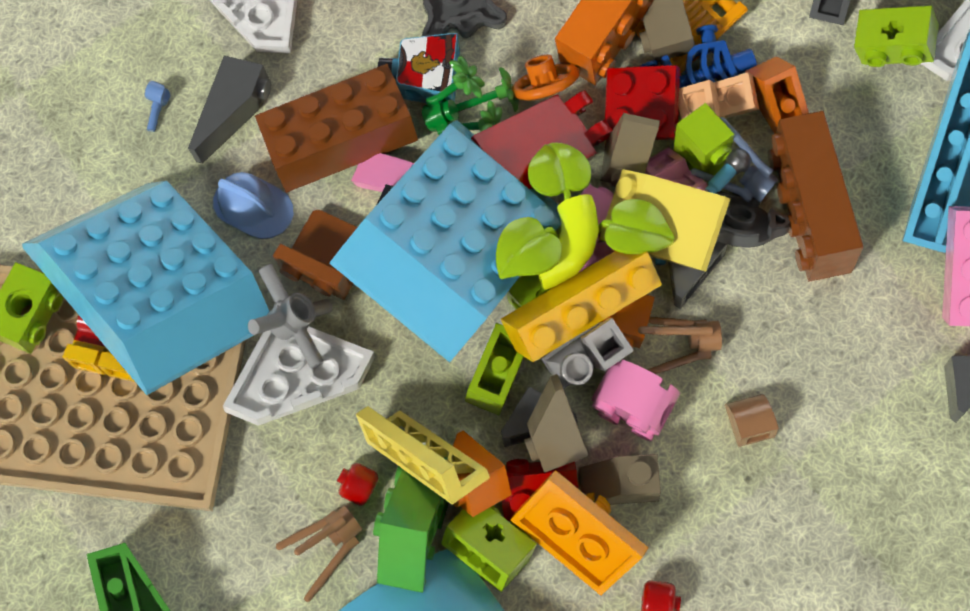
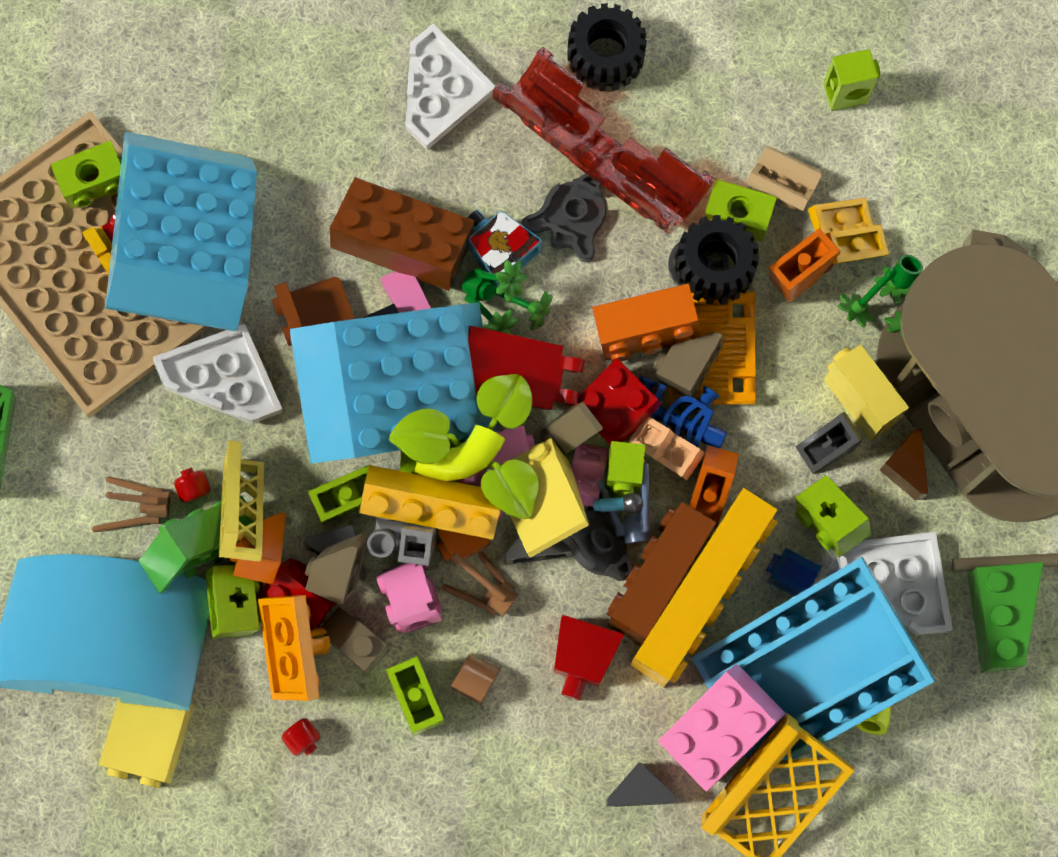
camera: 30 degrees right, 5 degrees up
(160, 96) = (314, 103): medium blue hand -> none
(230, 104) = (353, 151): dark grey slope -> none
(252, 205) = (303, 236): light blue piece -> none
(290, 316) = (247, 337): light grey bar -> none
(544, 78) = (569, 322): orange piece -> none
(720, 475) = (415, 696): none -> lime brick
(816, 317) = (583, 654): none -> red torso
(862, 153) = (708, 581): none -> yellow brick
(910, 107) = (792, 572): none -> clear blue brick

